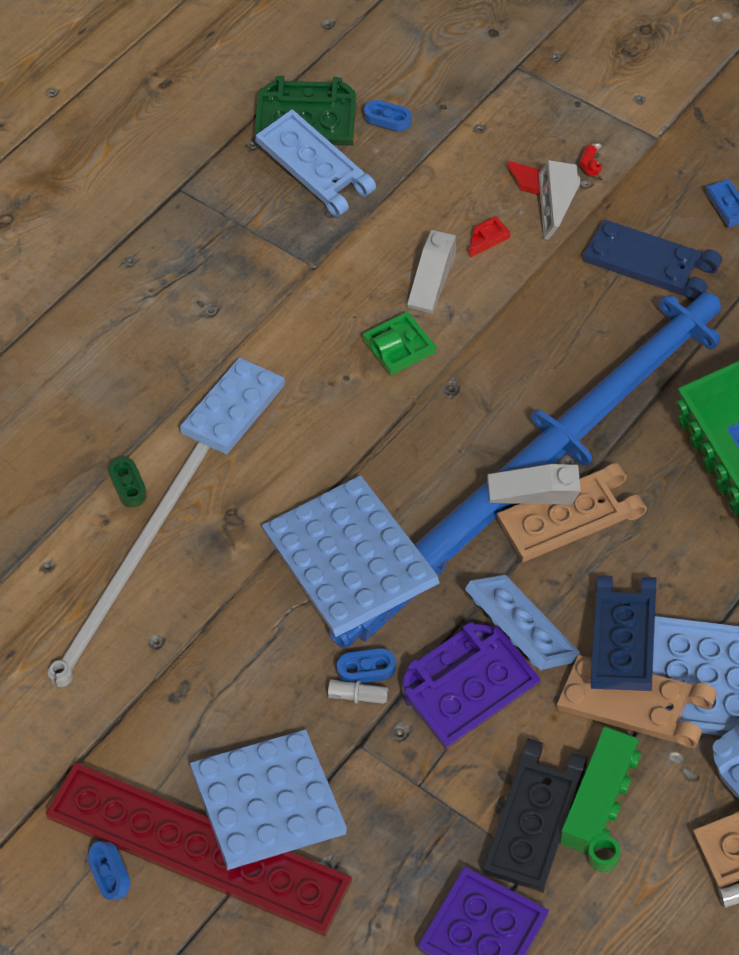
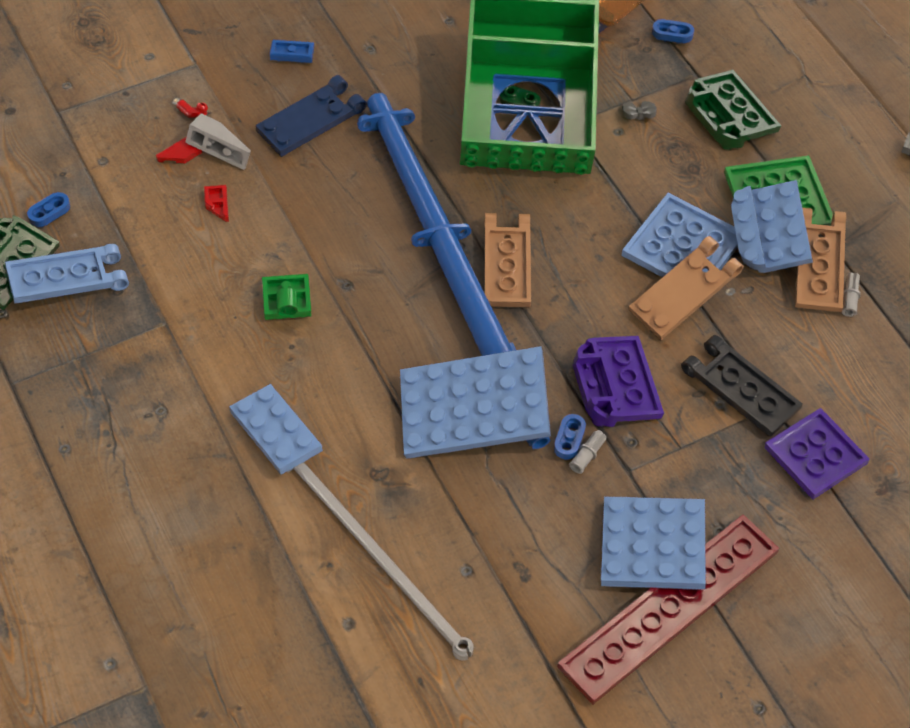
camera: 70 degrees left, 0 degrees up
(108, 870) = (663, 674): blue plate -> none
(127, 484) = (305, 531): dark green plate -> none
(432, 271) = (231, 246): light grey slope -> none
(522, 622) = (589, 323): medium blue plate -> none
(535, 485) = (486, 261): light grey slope -> none
(599, 796) = (746, 340): green hinge -> none
(623, 637) = (633, 269): dark blue hinge -> none

